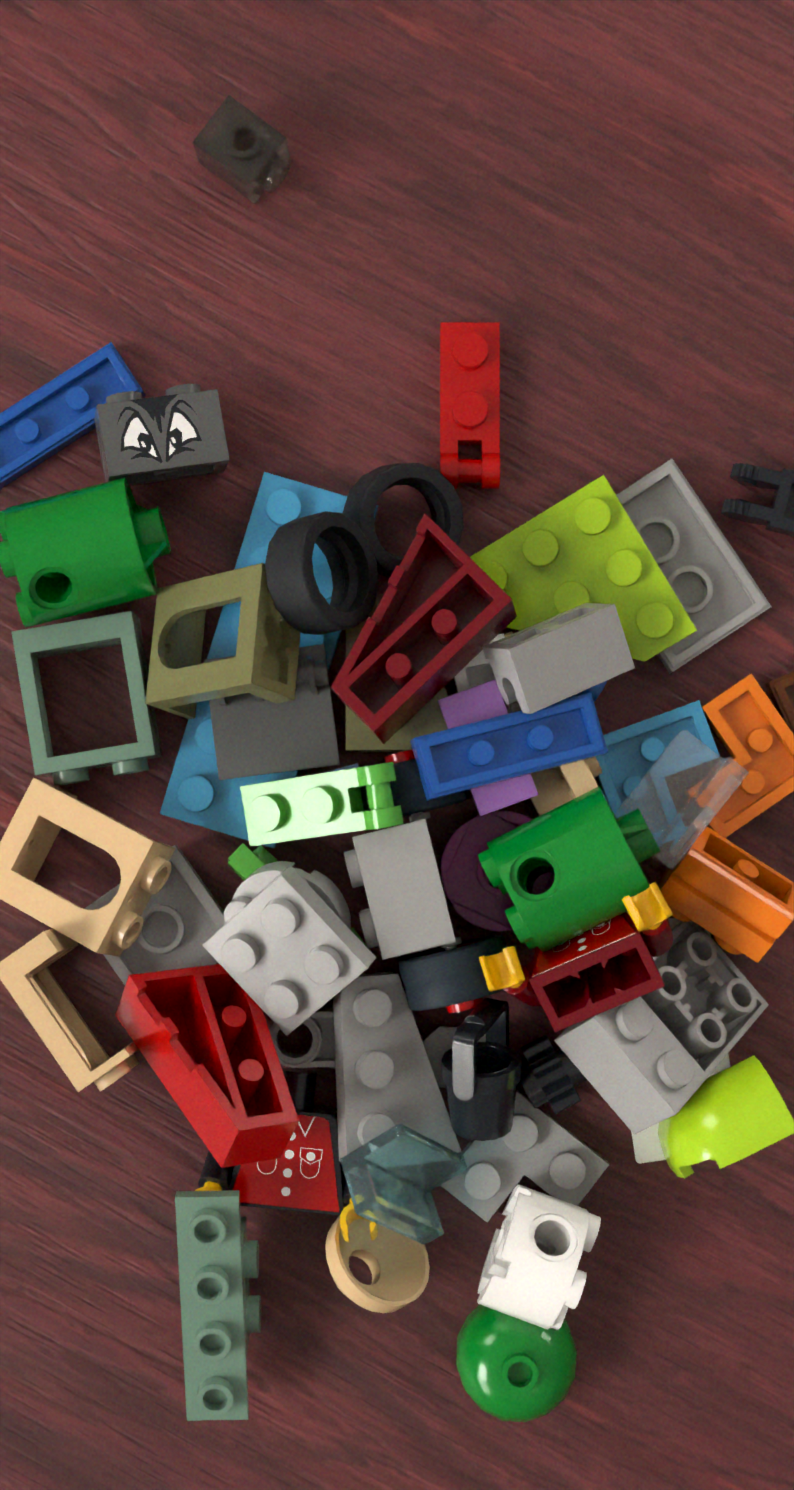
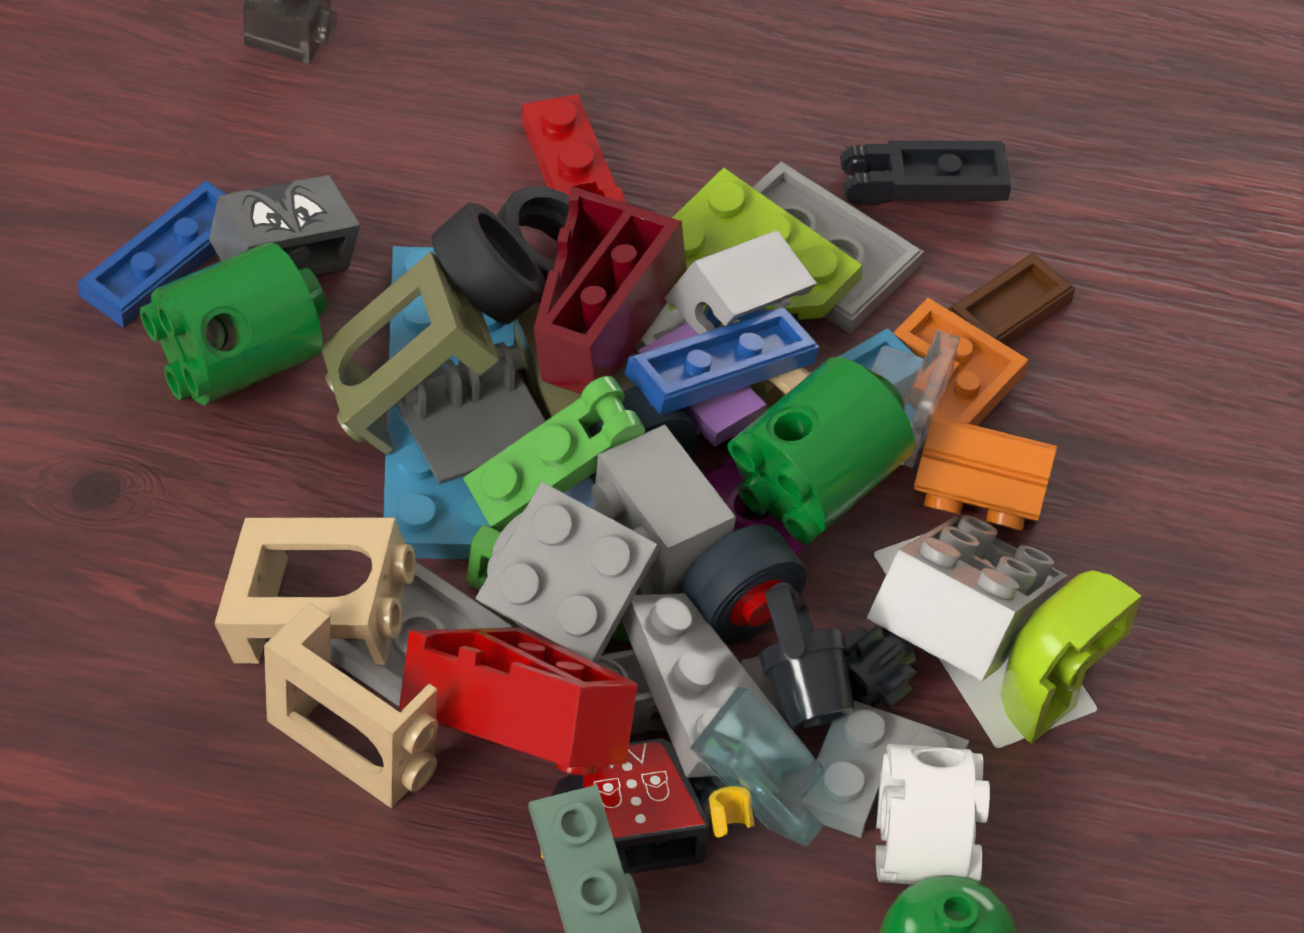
camera: 30 degrees left, 35 degrees down
(75, 637) = (258, 408): sand green window -> none
(396, 1265) = (757, 877): tan piece -> none
(592, 969) = (881, 519): dark red torso -> none

